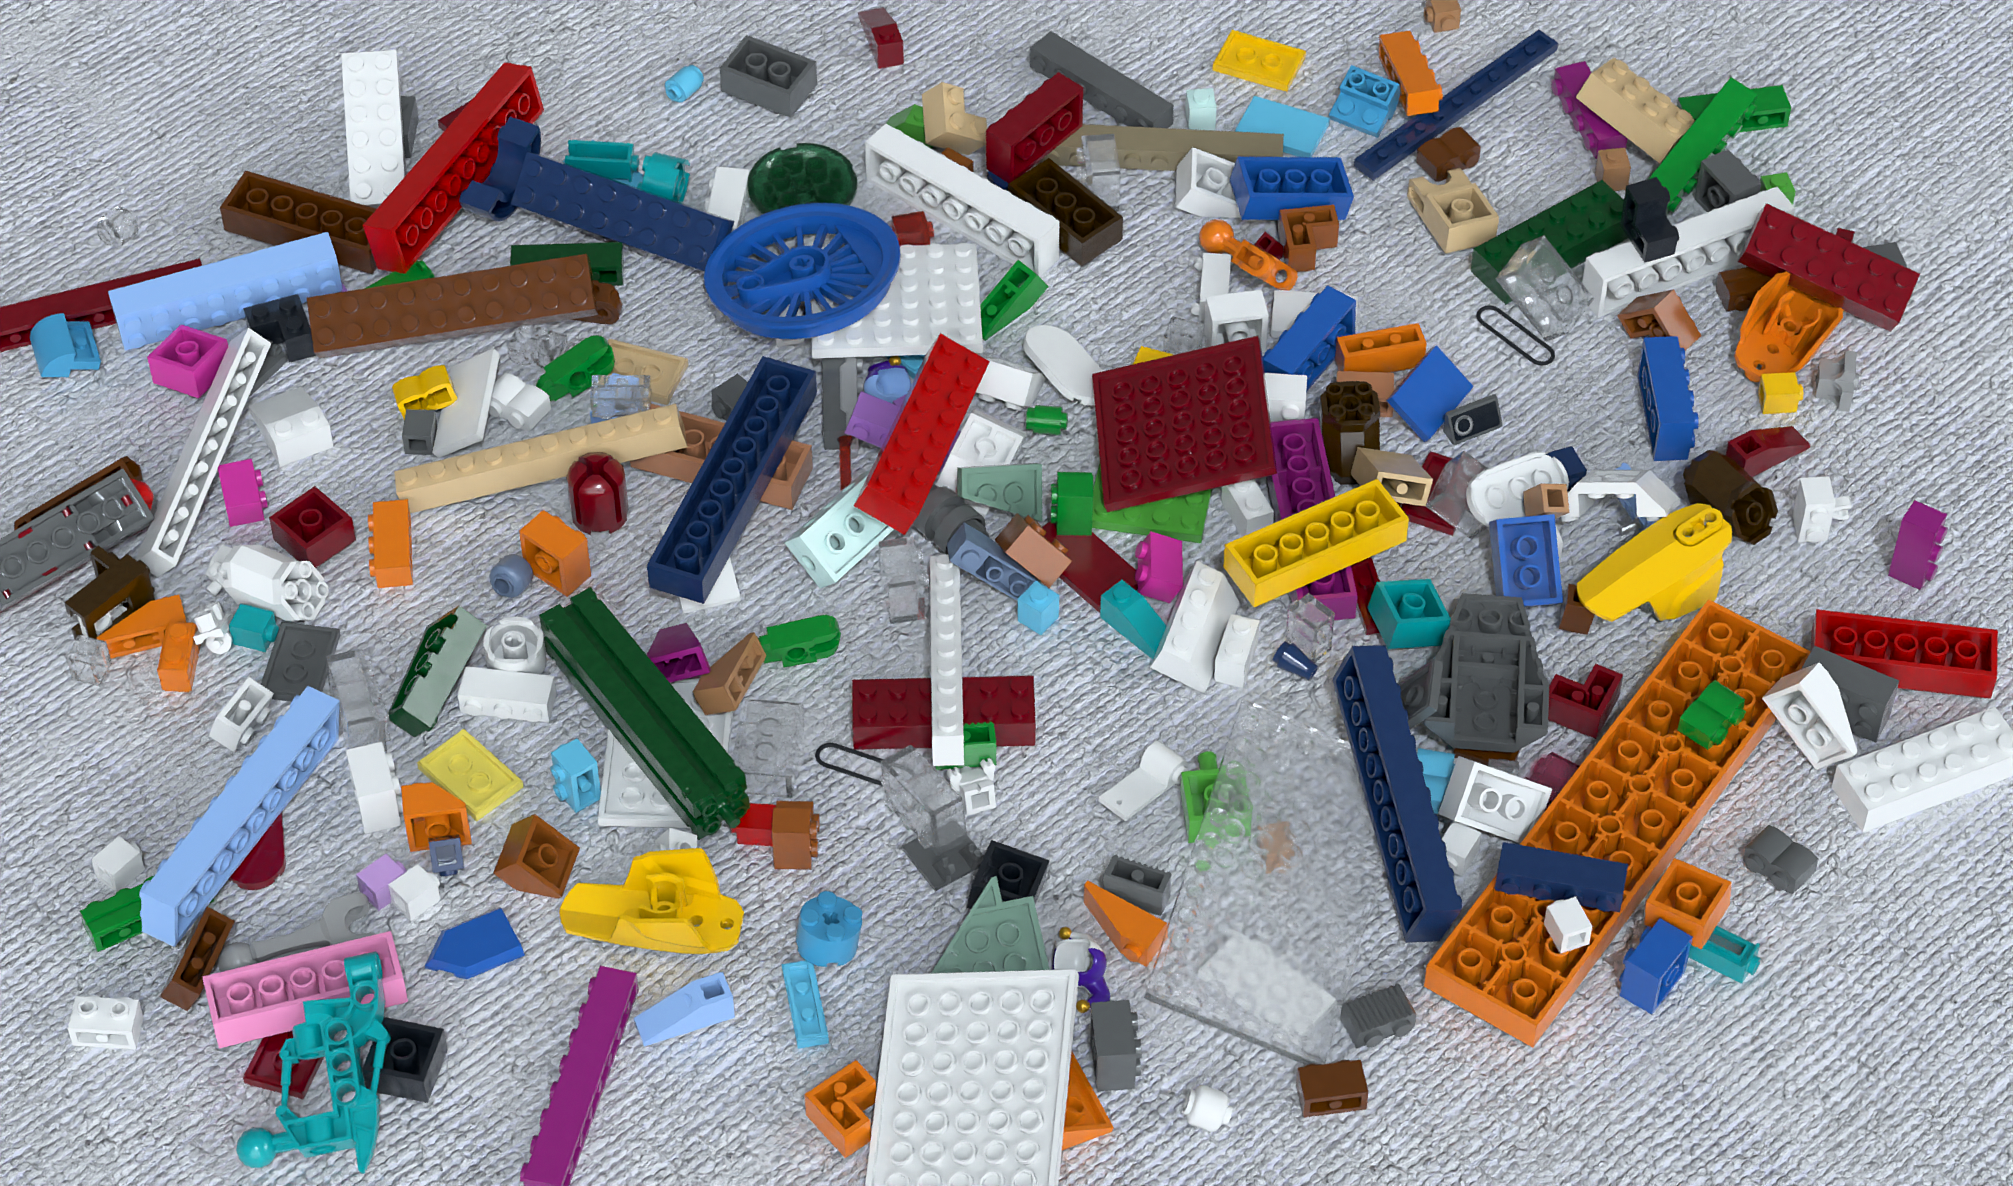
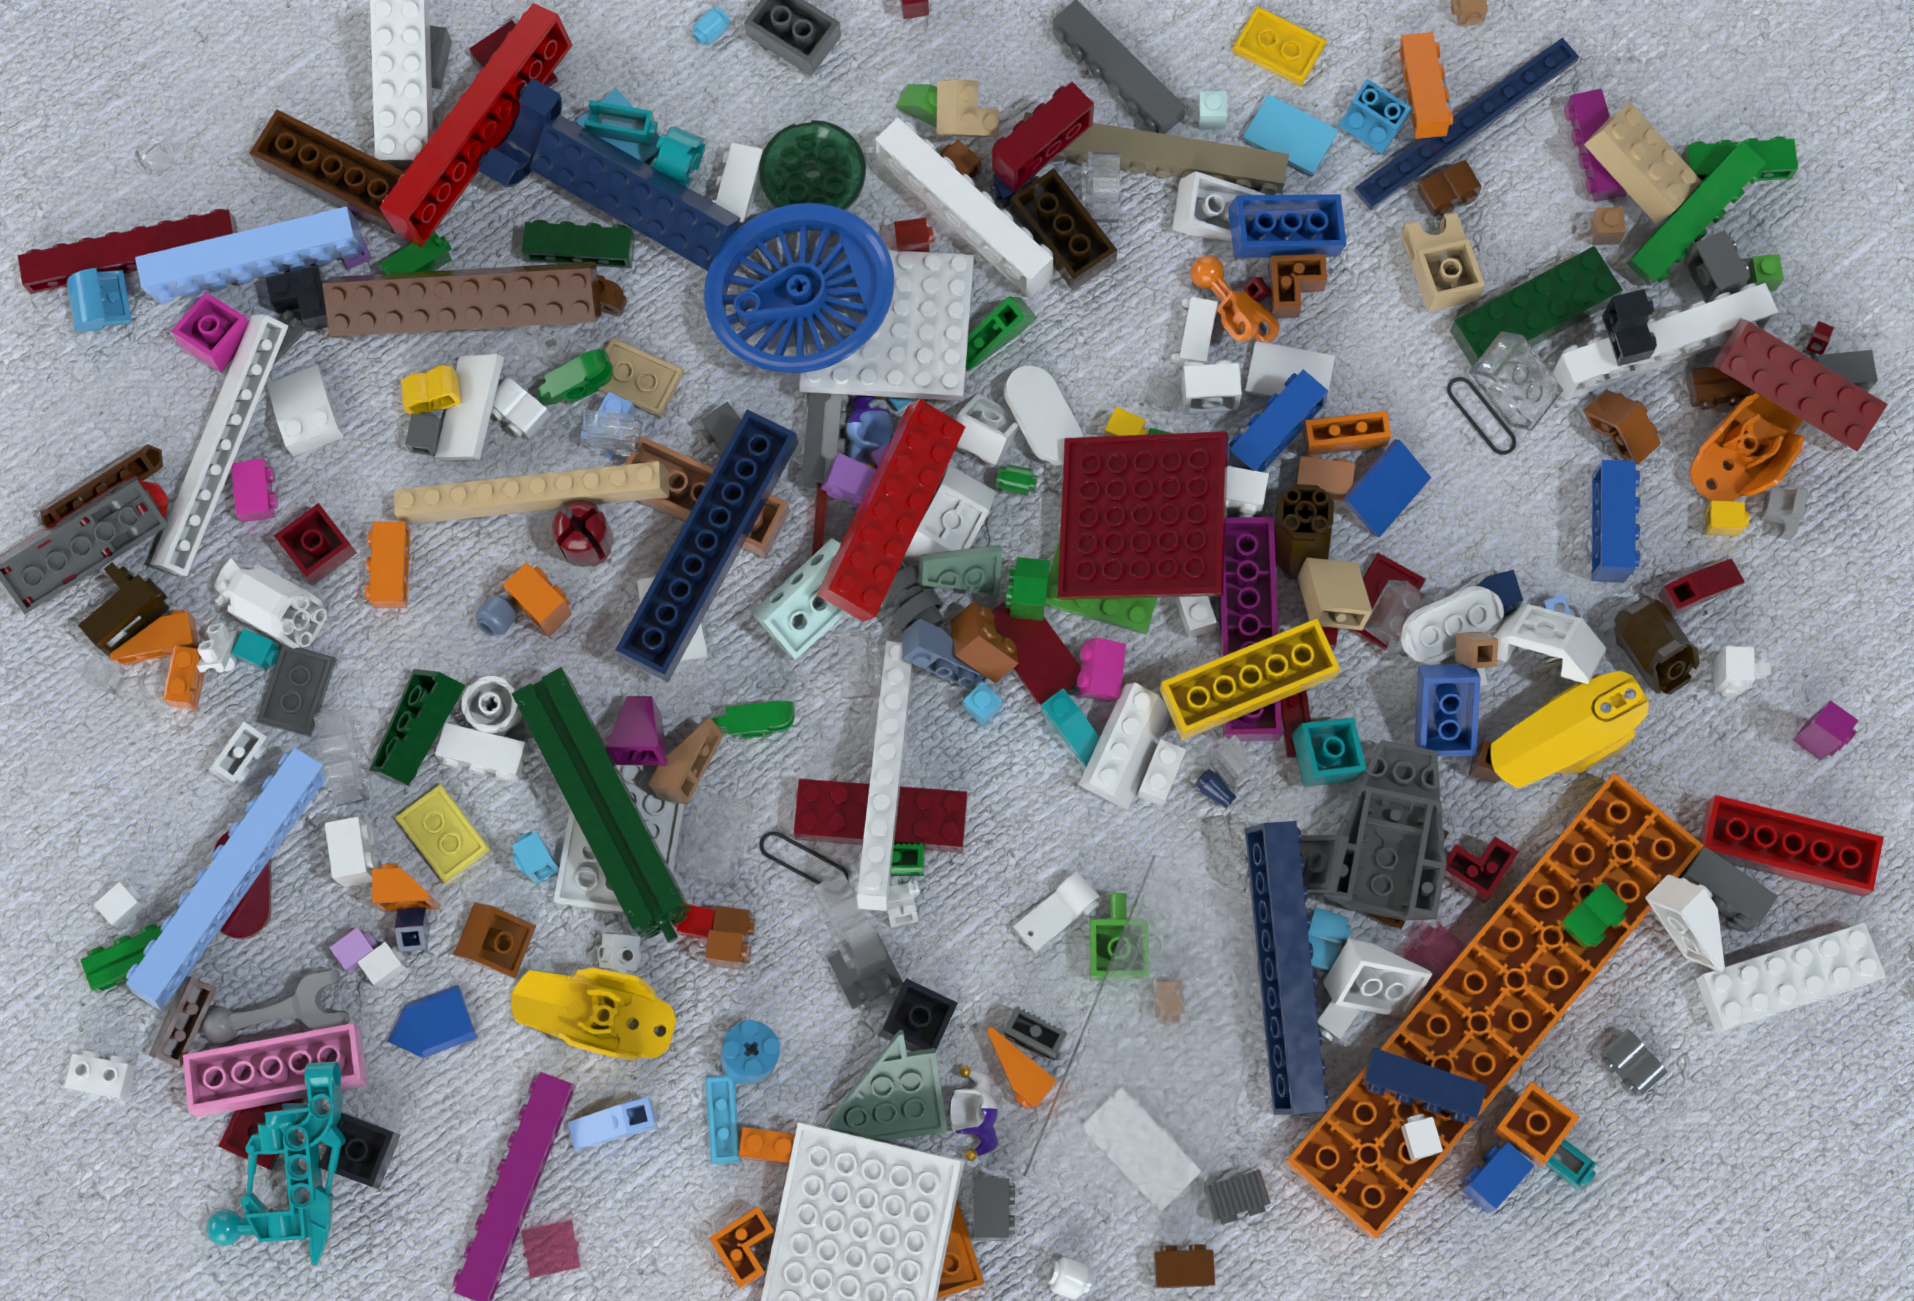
camera: 10 degrees right, 25 degrees up
(626, 1142) = (551, 1249): none -> clear pink piece
(857, 1016) = (766, 1146): none -> orange brick
(1472, 420) = (1424, 520): slope -> none

